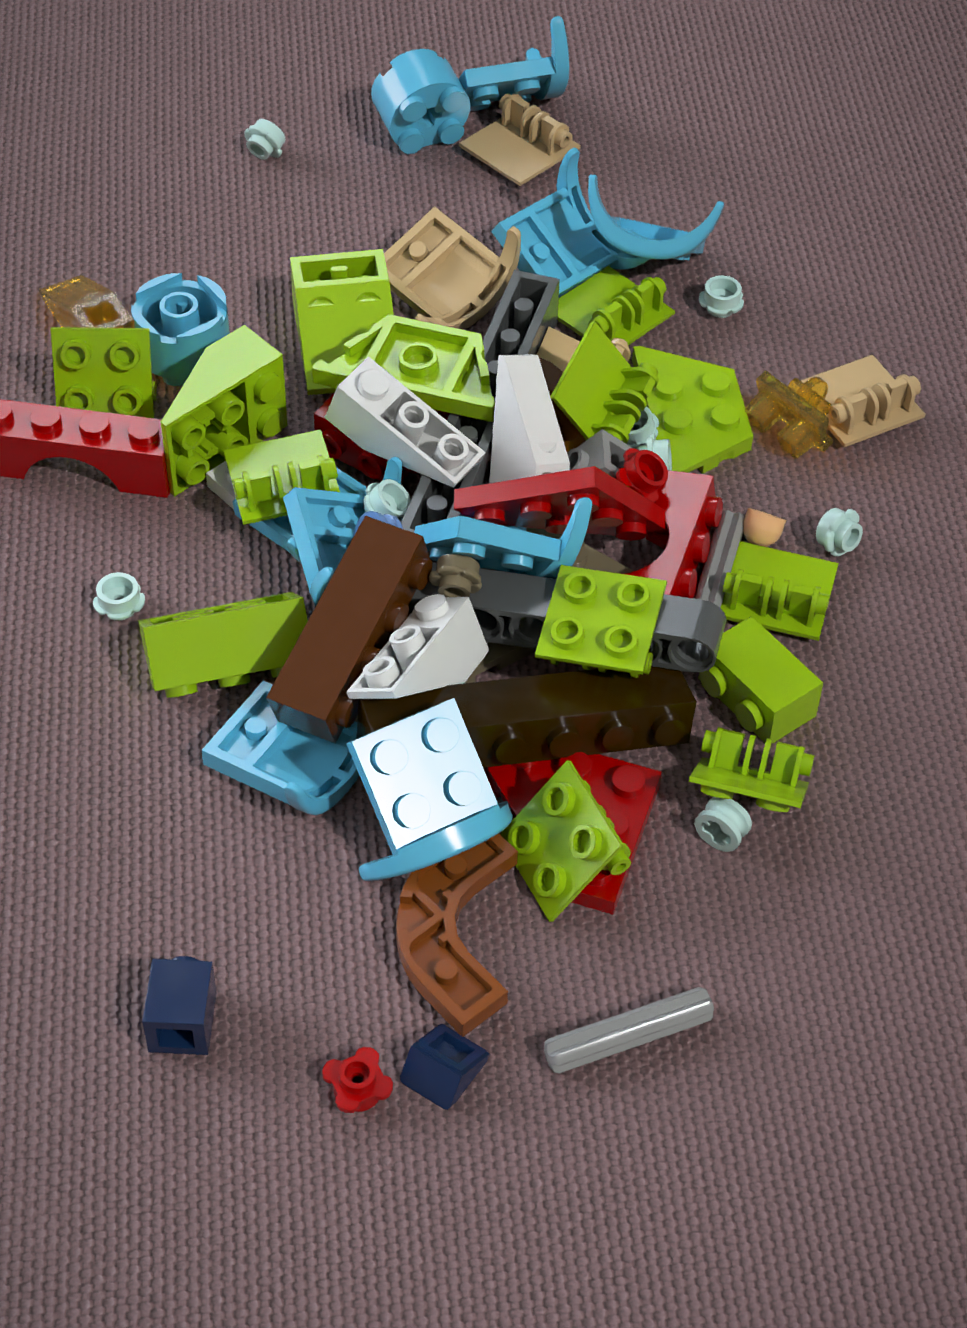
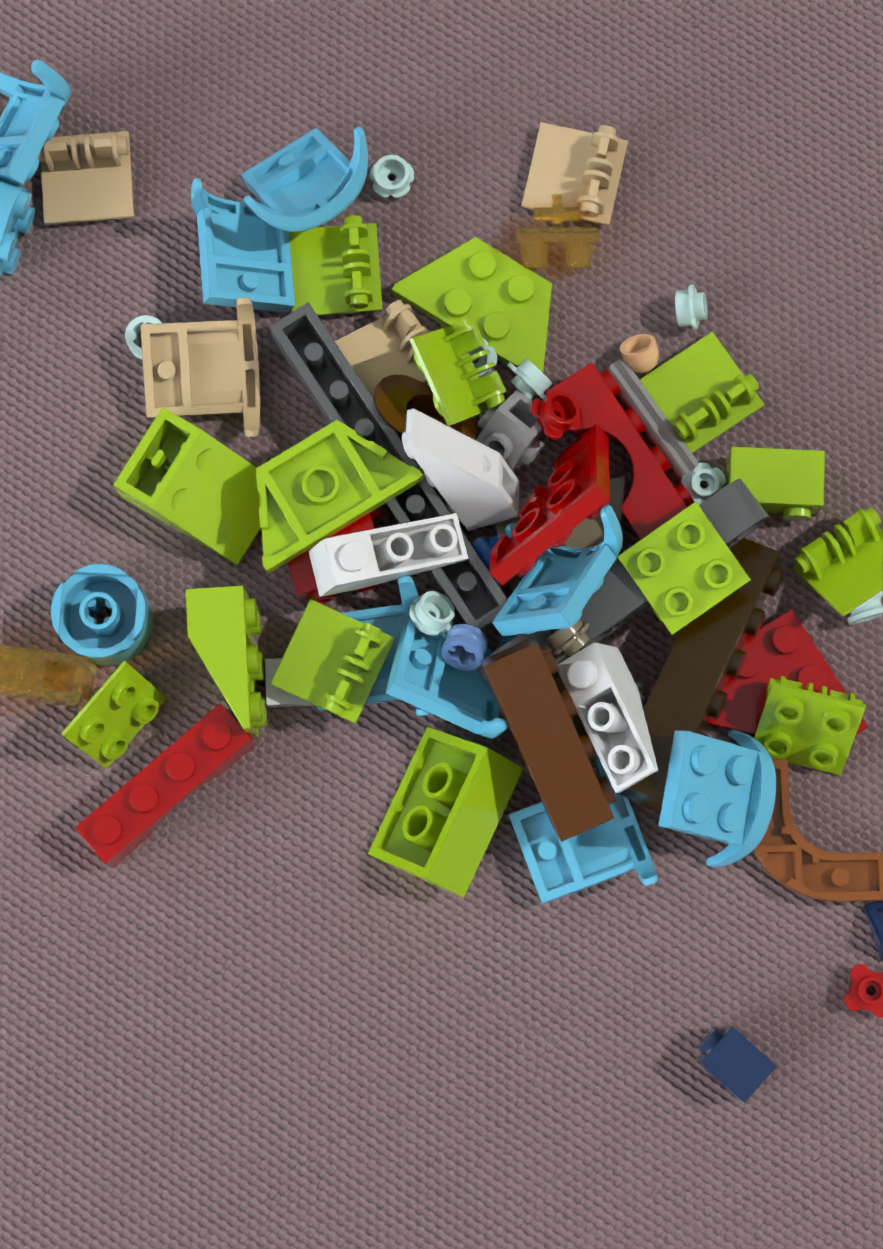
camera: 45 degrees left, 30 degrees up
(118, 596) = (339, 842): light aqua plate -> none

